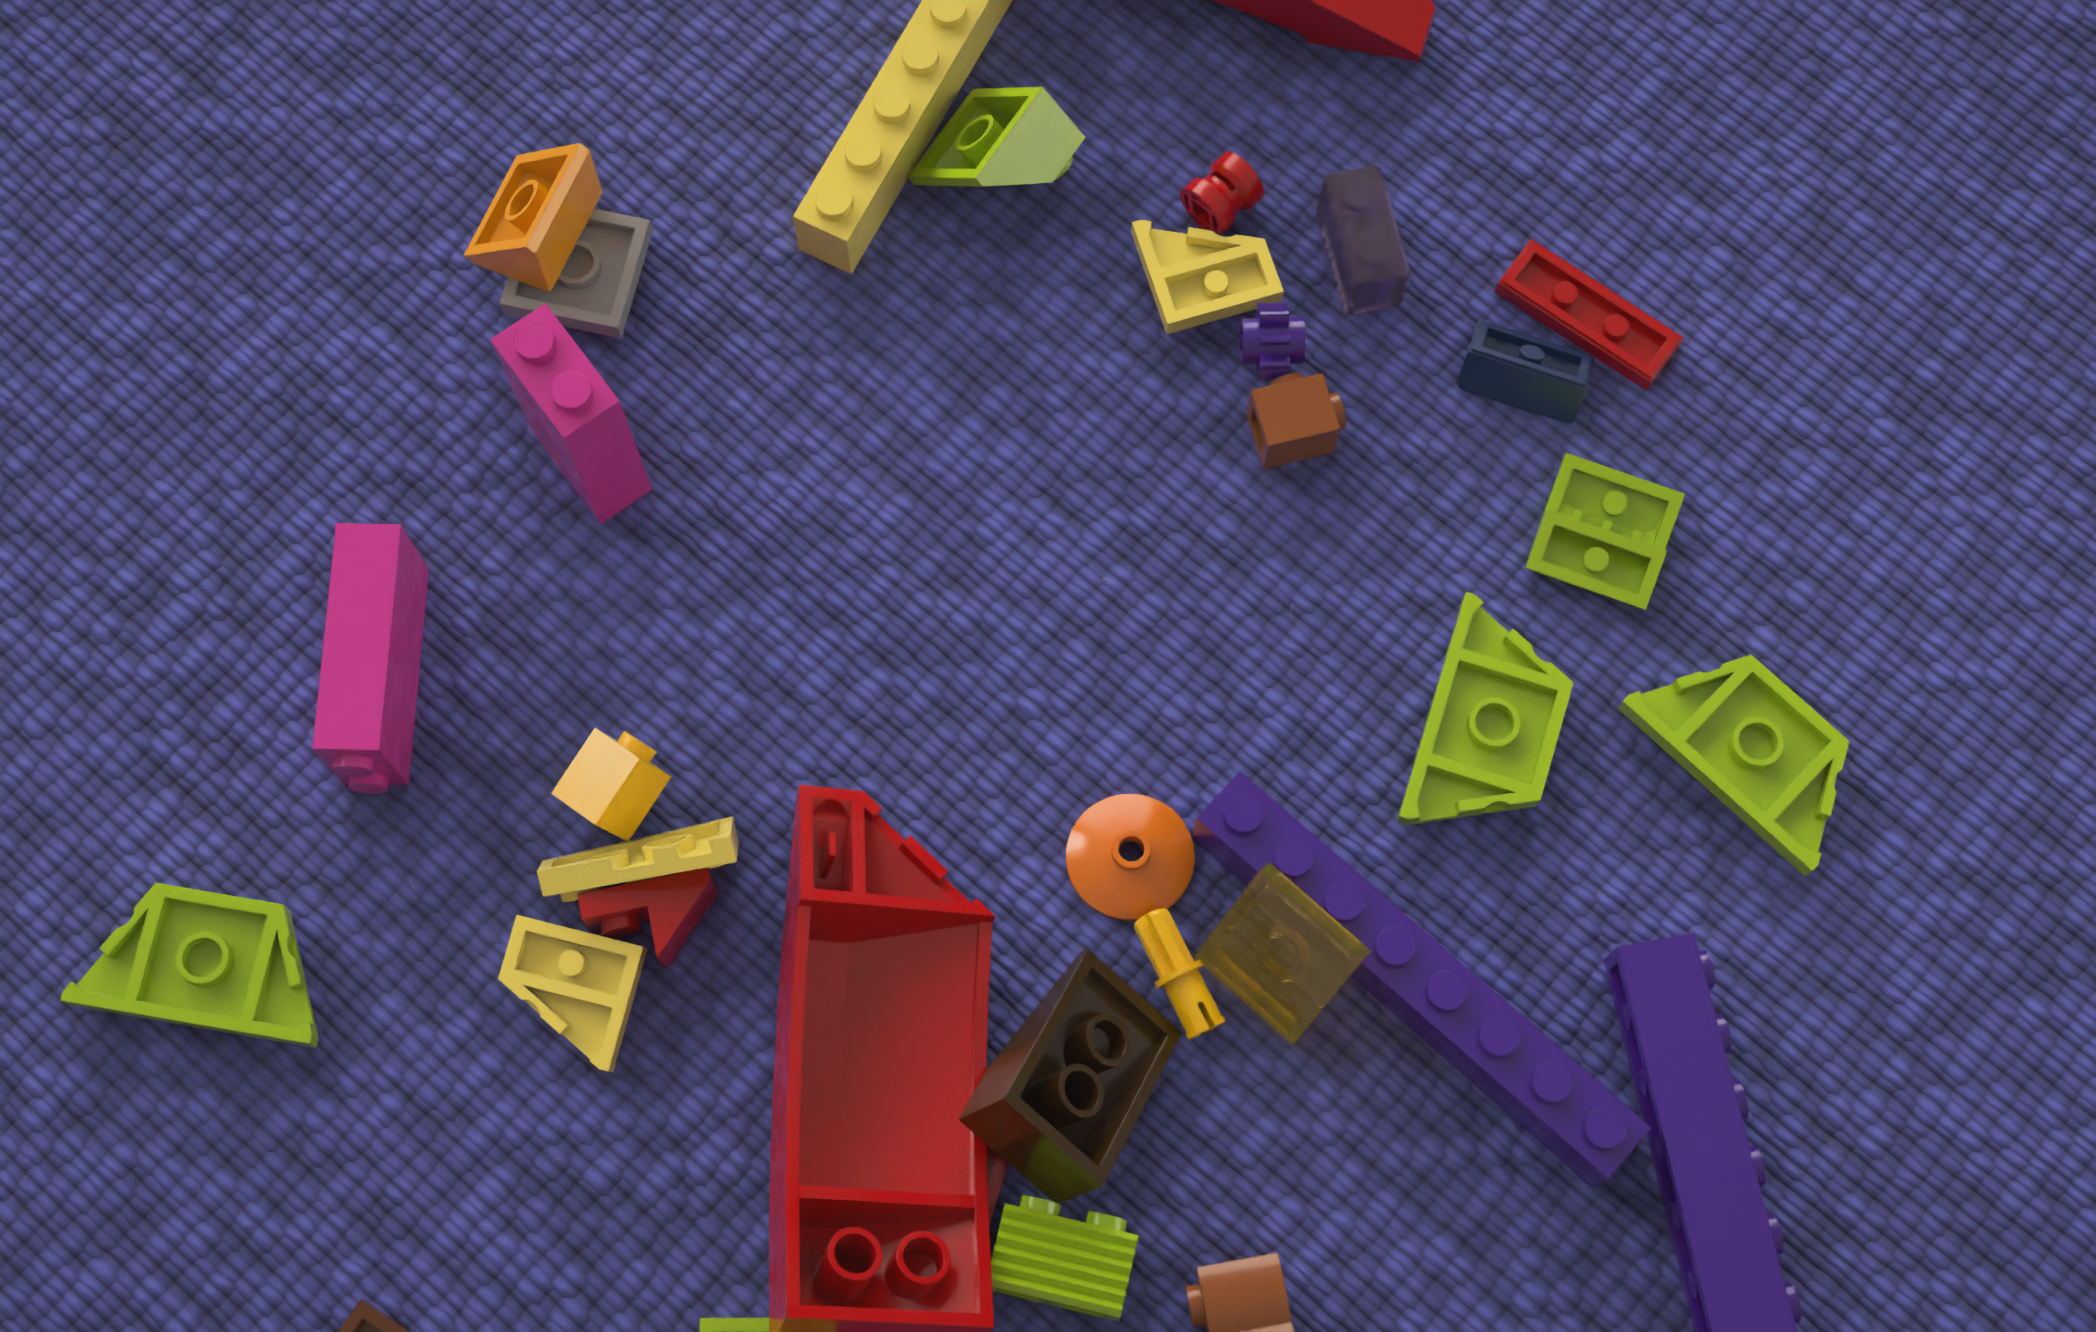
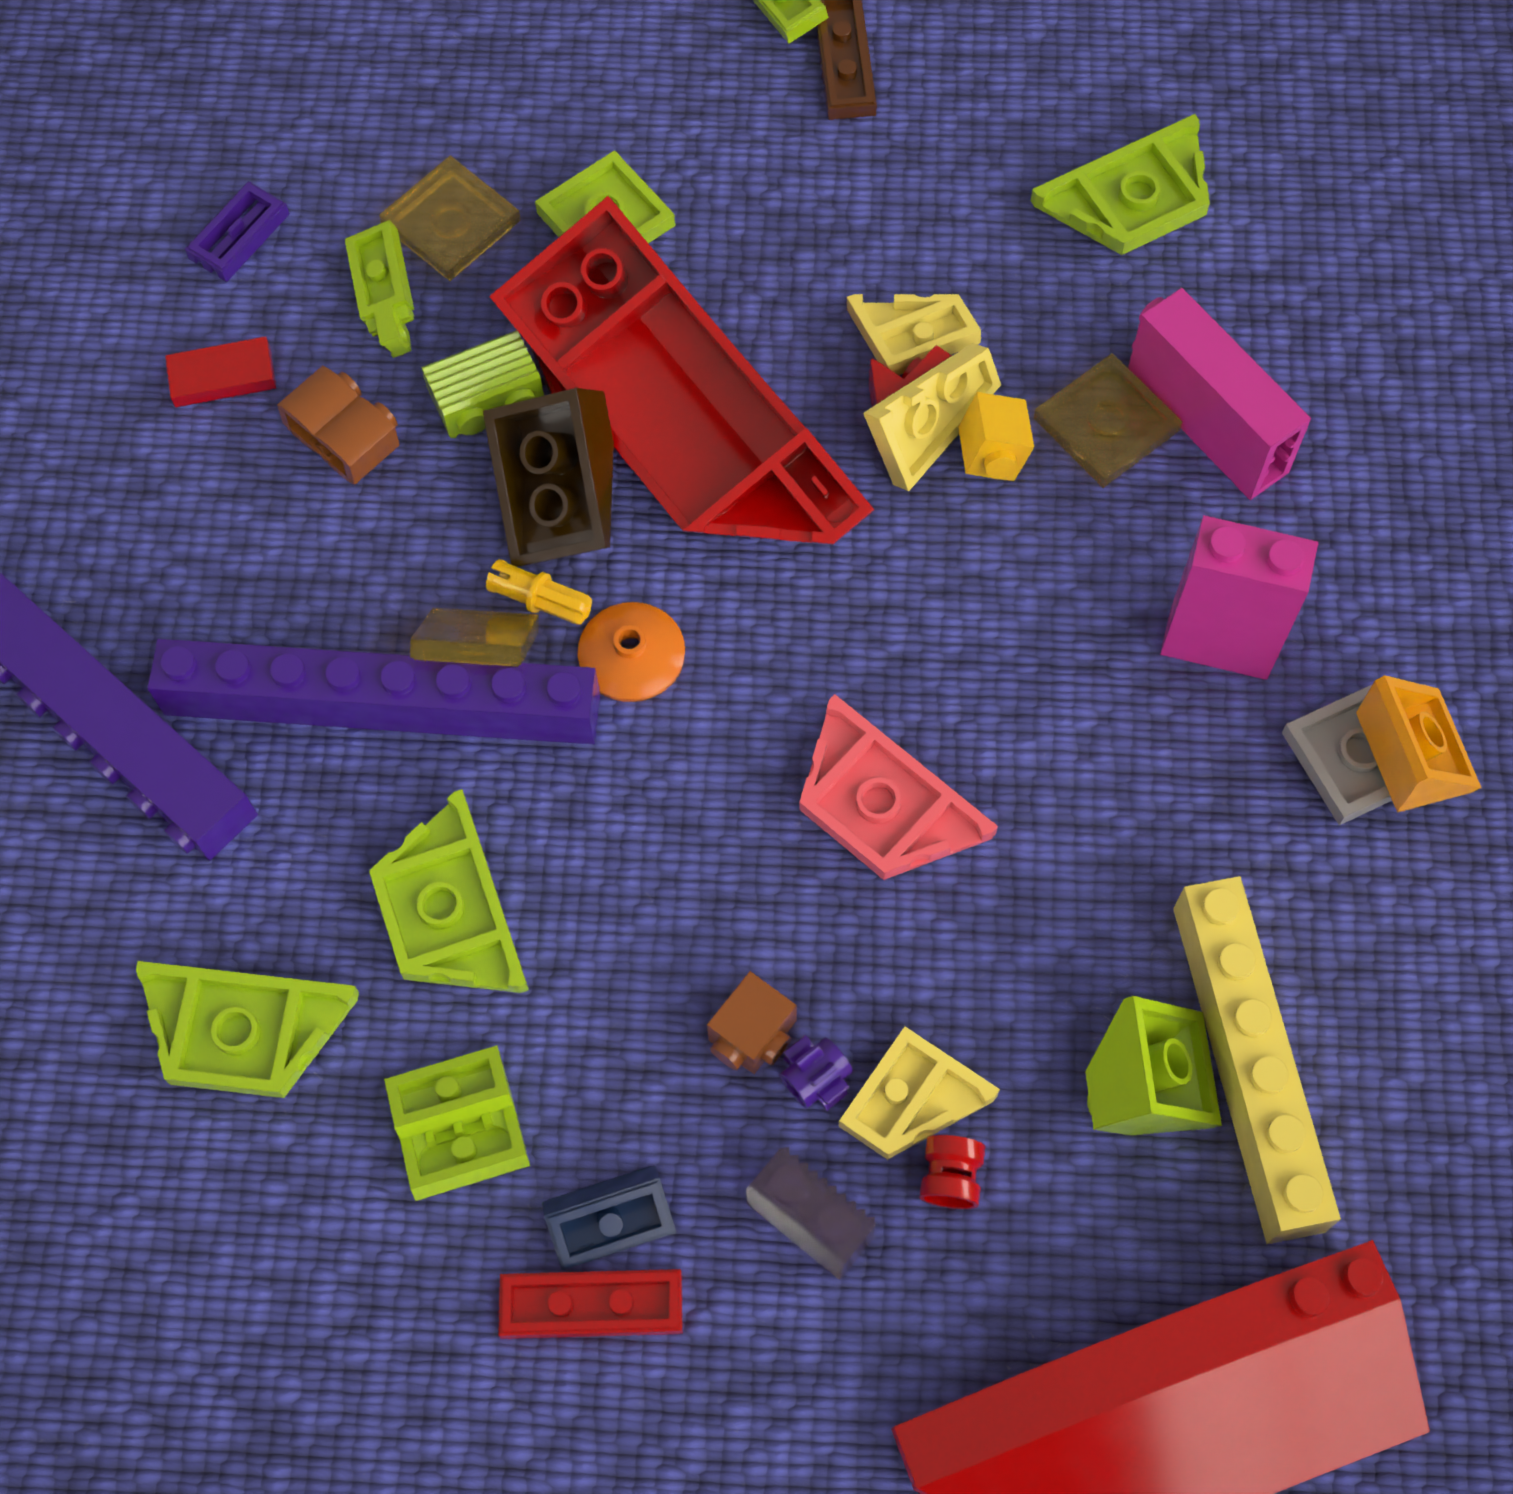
camera: 145 degrees right, 5 degrees down
(479, 743) = (1107, 420): none -> clear yellow tile
(1021, 533) = (883, 799): none -> coral wing

